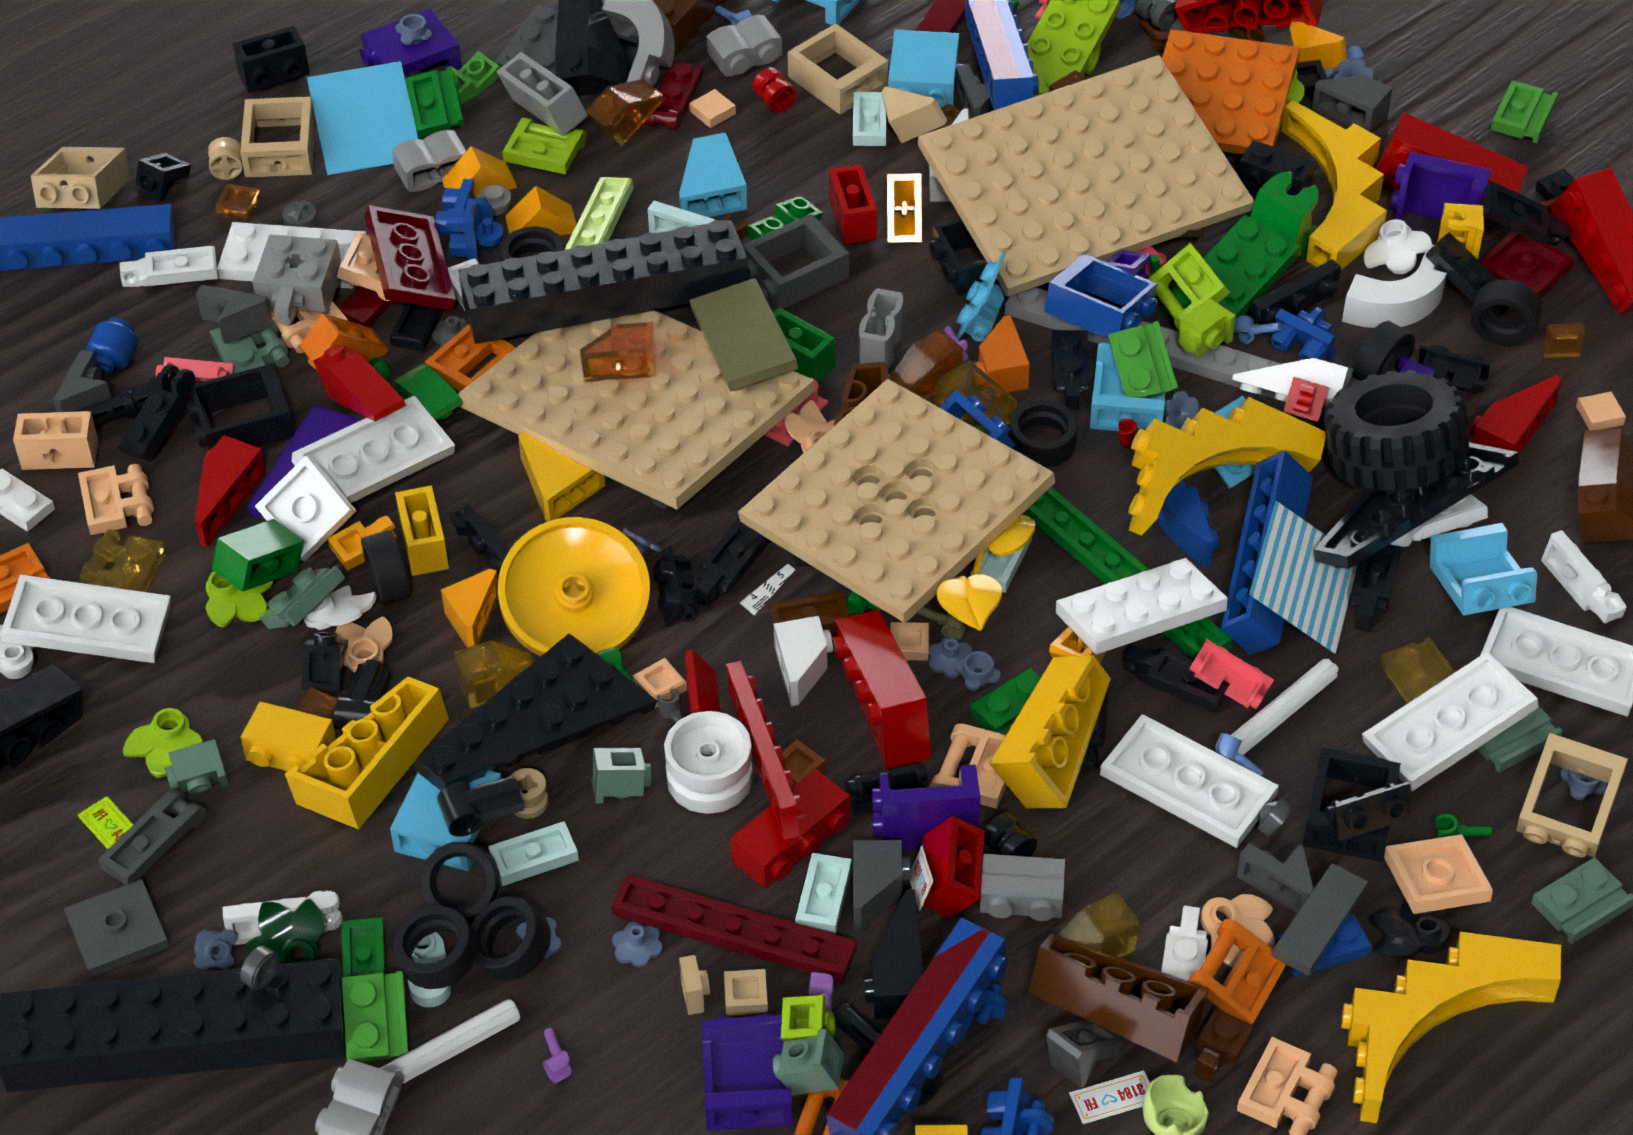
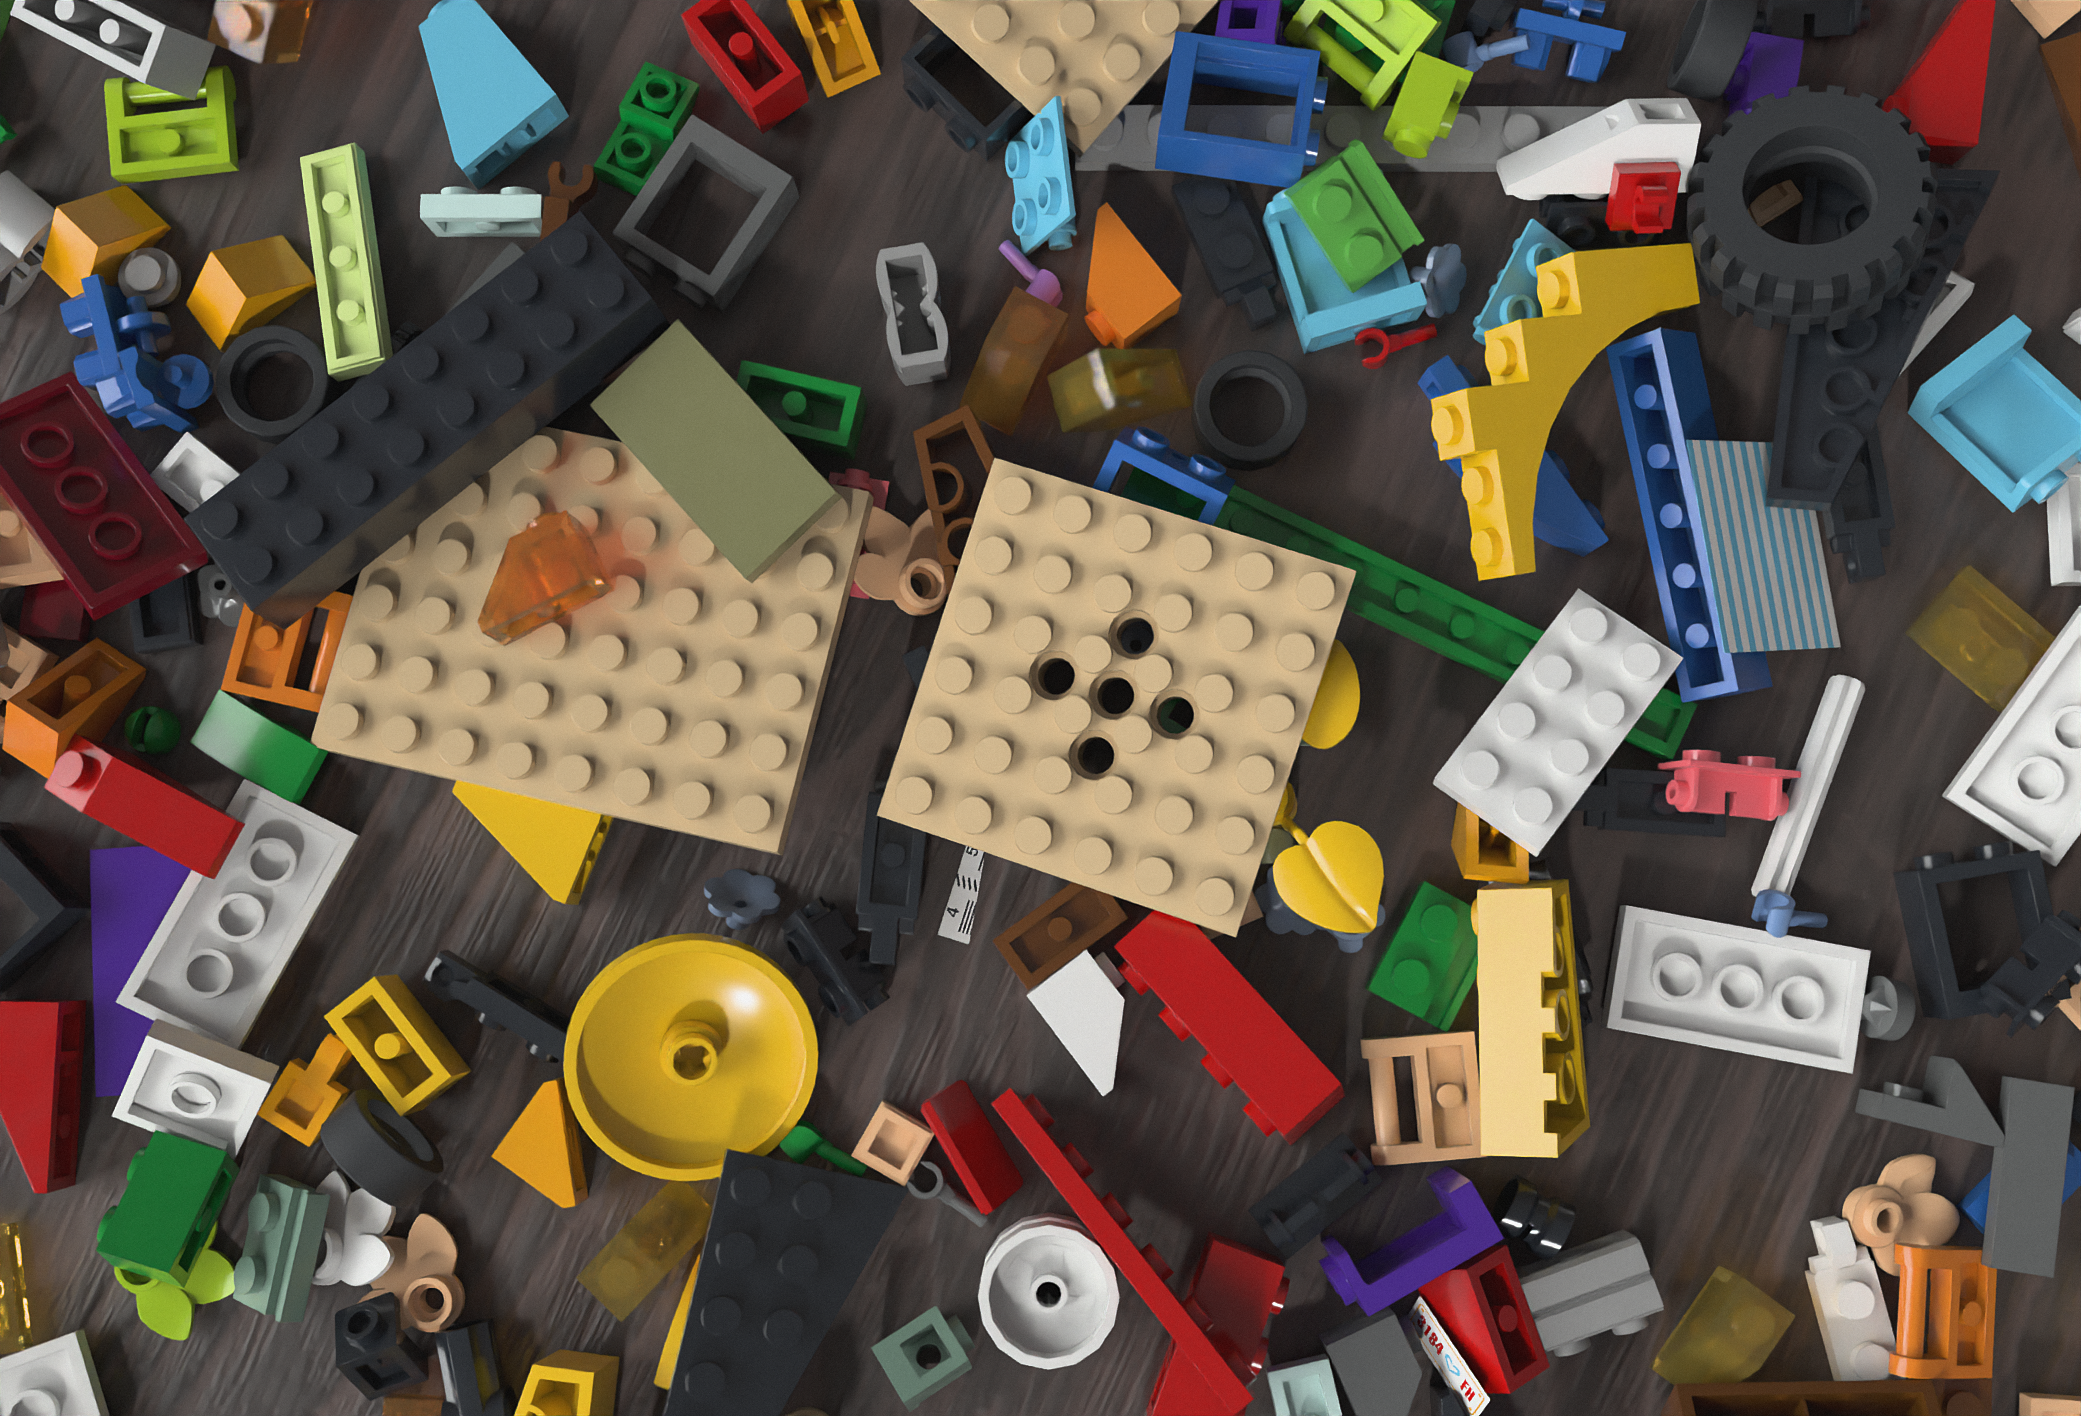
camera: 25 degrees left, 35 degrees up
(802, 761) = (1171, 1215): dark orange plate -> none

